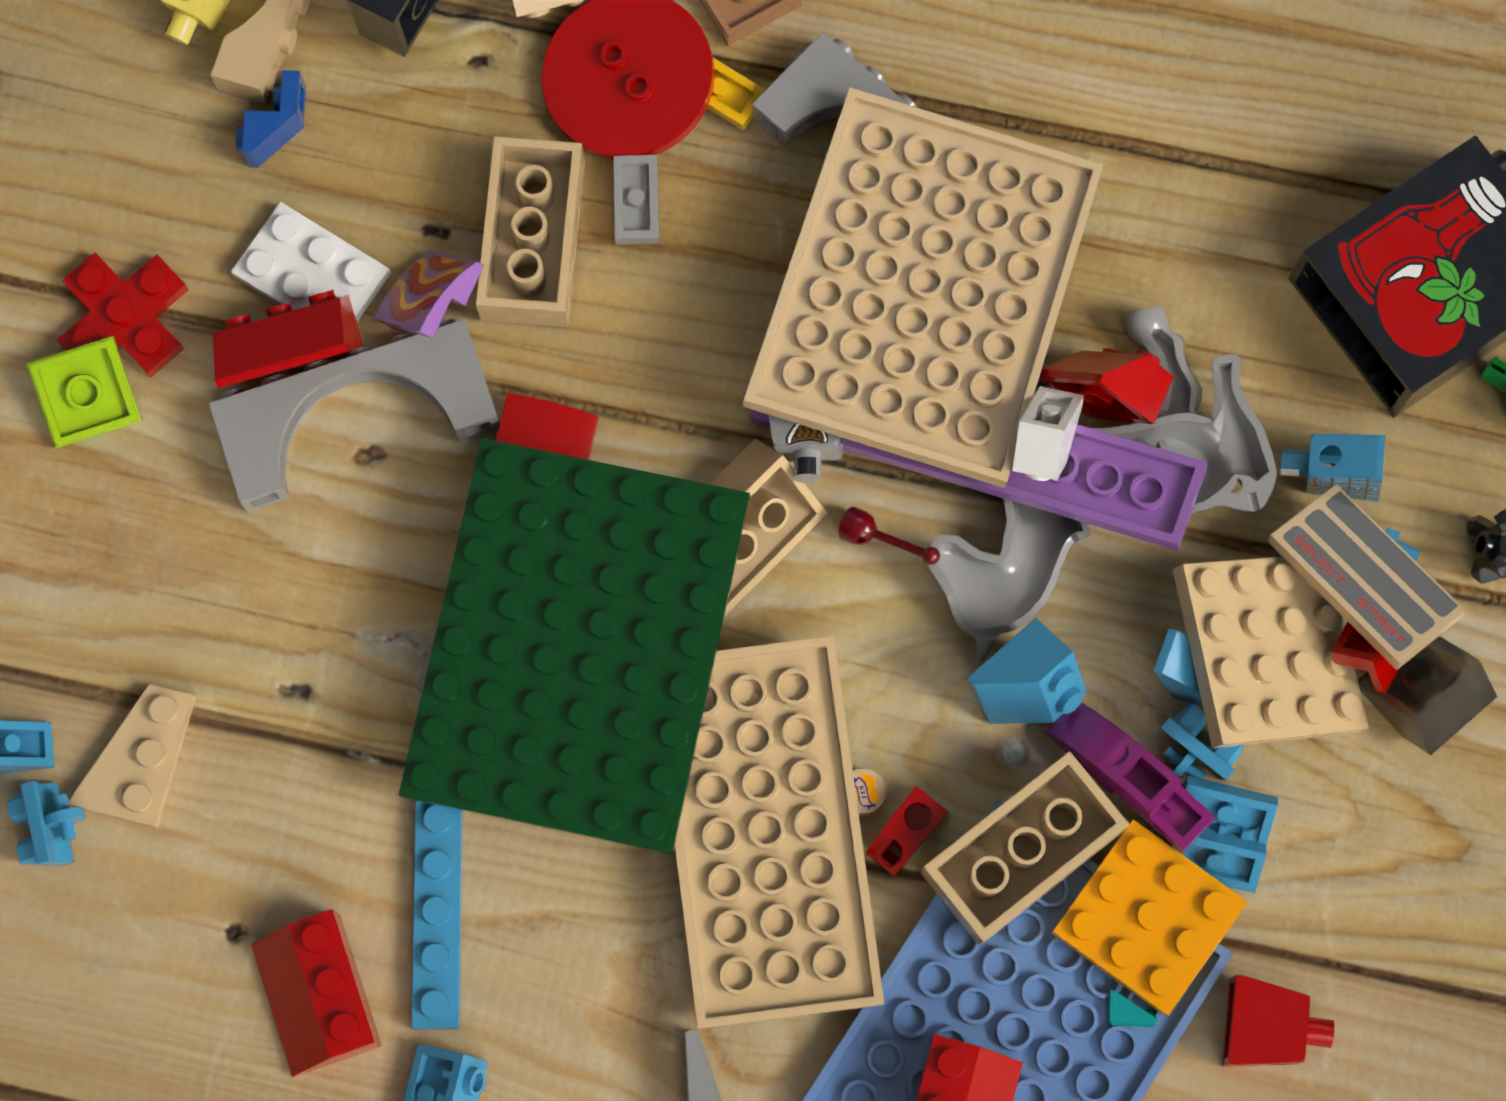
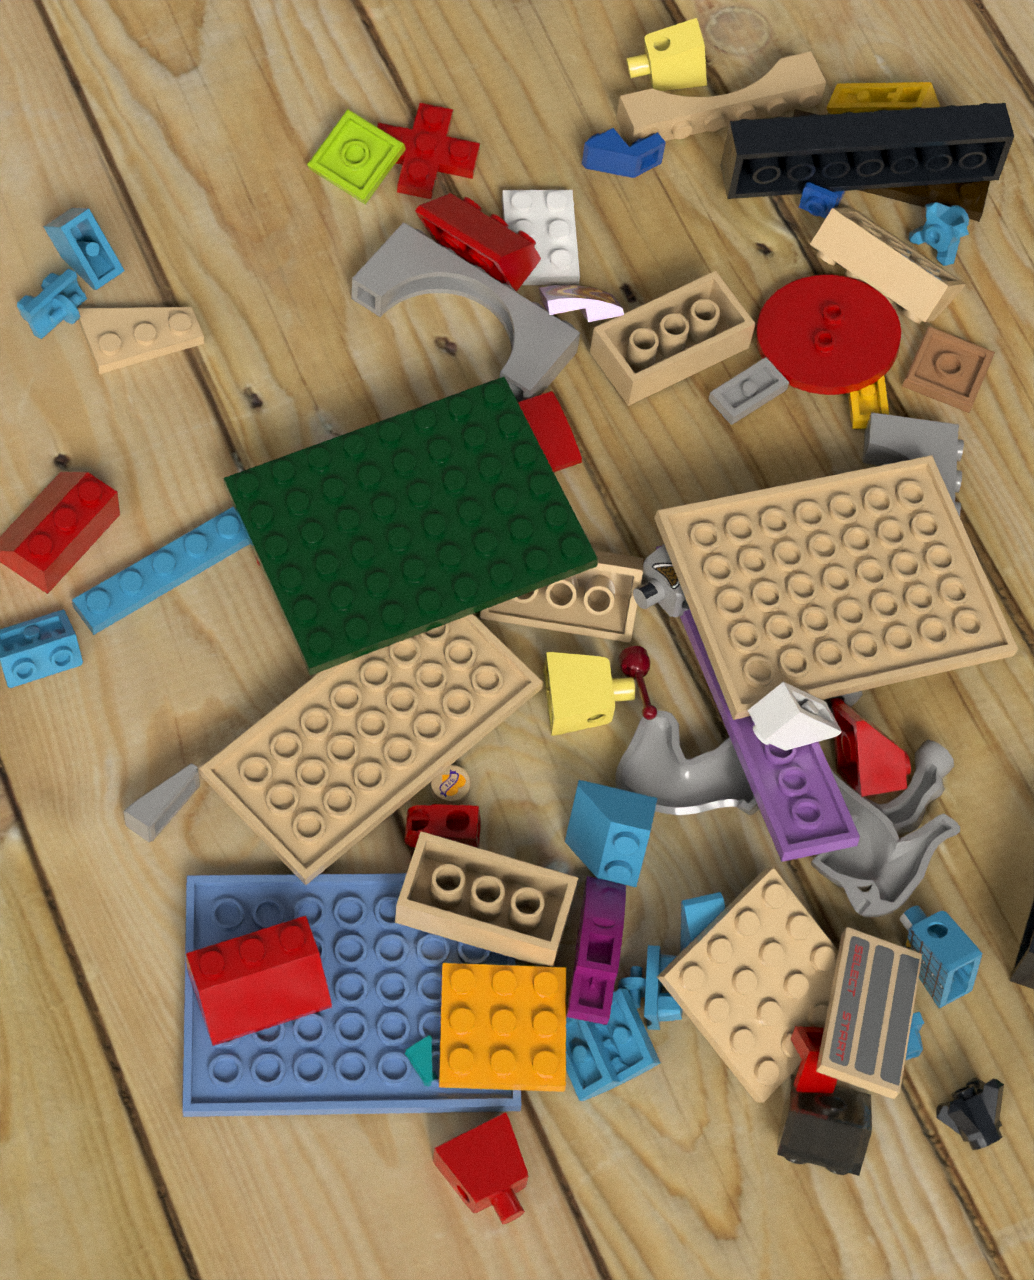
camera: 45 degrees right, 15 degrees down
(853, 598) = (582, 691): none -> light yellow torso

